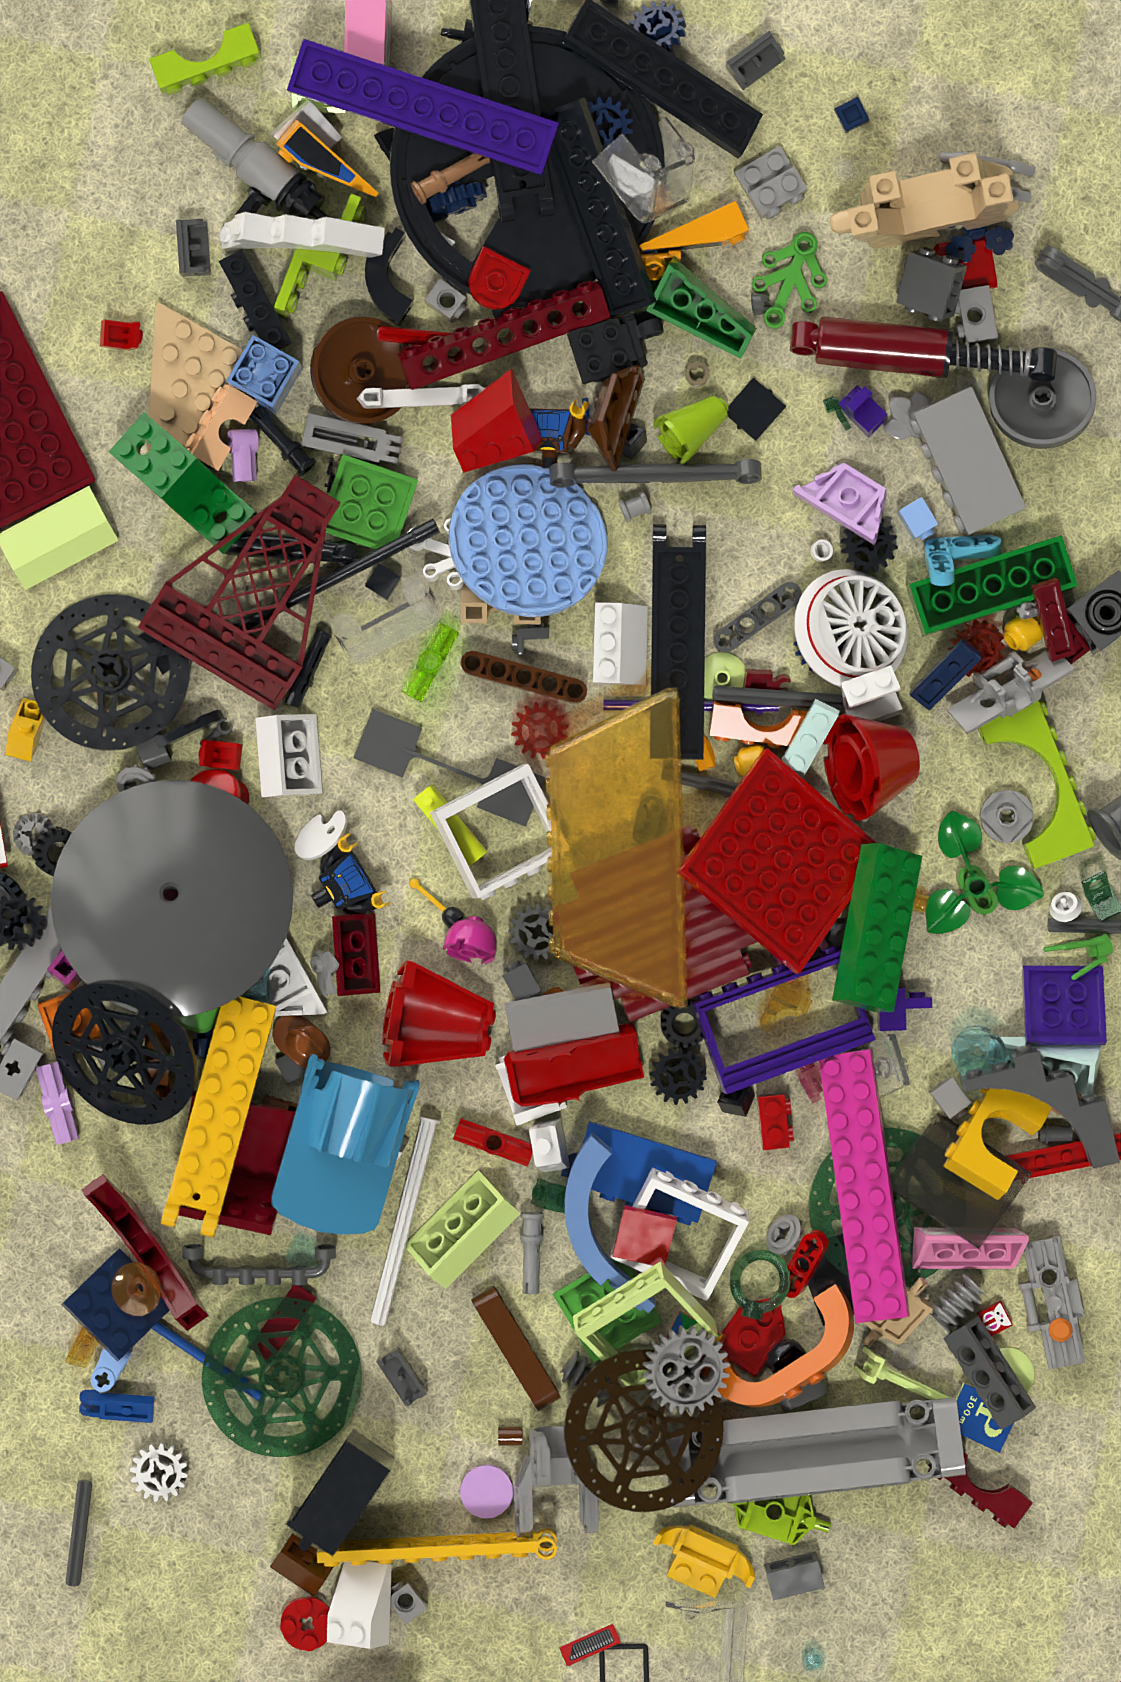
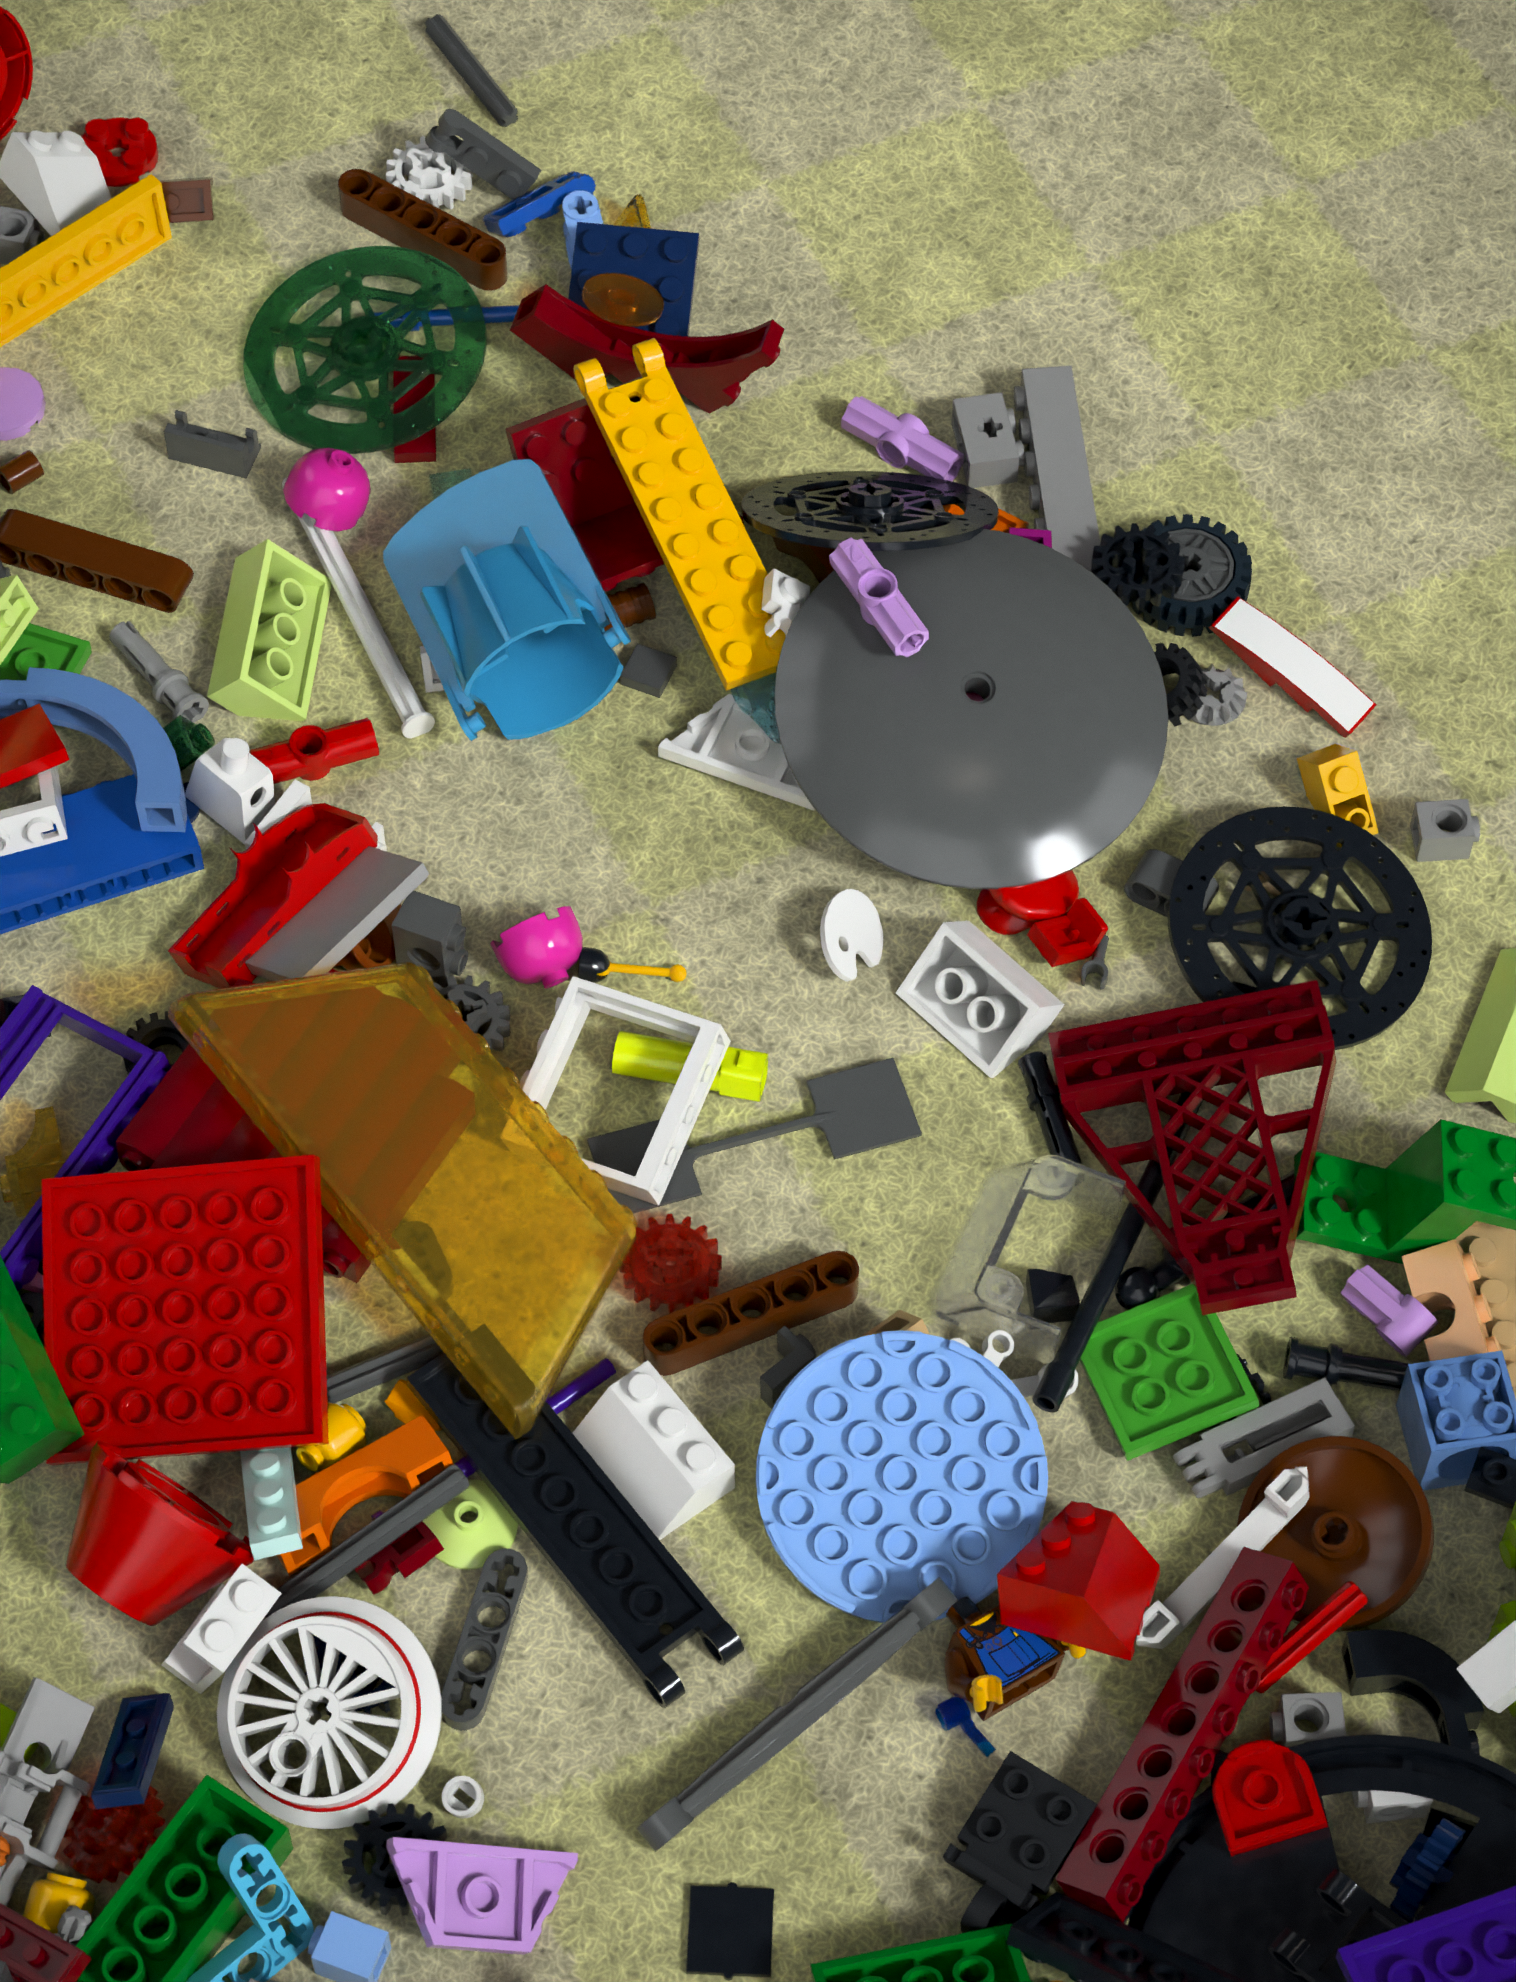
camera: 140 degrees right, 30 degrees down
(127, 776) = (1147, 828): light grey gear -> none
(127, 1452) = (482, 154): none -> dark grey plate
(180, 988) = (879, 597): none -> lavender piece
(186, 730) = (1136, 928): black tile -> none
(188, 1448) = (422, 227): none -> reddish brown beam
(215, 1022) = (782, 600): none -> white plate
(248, 1273) = (474, 442): dark grey bar -> none
(300, 1039) = (659, 700): dark orange piece -> none
(323, 965) = (713, 795): light grey plate -> none
(341, 1494) = (182, 256): black container -> none
(346, 882) = (763, 904): torso -> none
(356, 953) = (682, 832): dark red slope -> none
(370, 1295) = (328, 488): none -> dark pink cylinder
(433, 1019) = (502, 817): red cone -> none
(438, 646) = (902, 1261): clear neon green piece -> none
(440, 180) = (1474, 1847): medium nougat pin -> none
(615, 413) = (926, 1742): reddish brown wedge -> none
(635, 441) = (880, 1740): black slope -> none
(635, 507) = (789, 1651): light grey bush -> none
(672, 1087) = (123, 986): black gear -> none
(690, 426) = (802, 1820): lime cone -> none
(699, 382) = (873, 1917): dark tan bush -> none

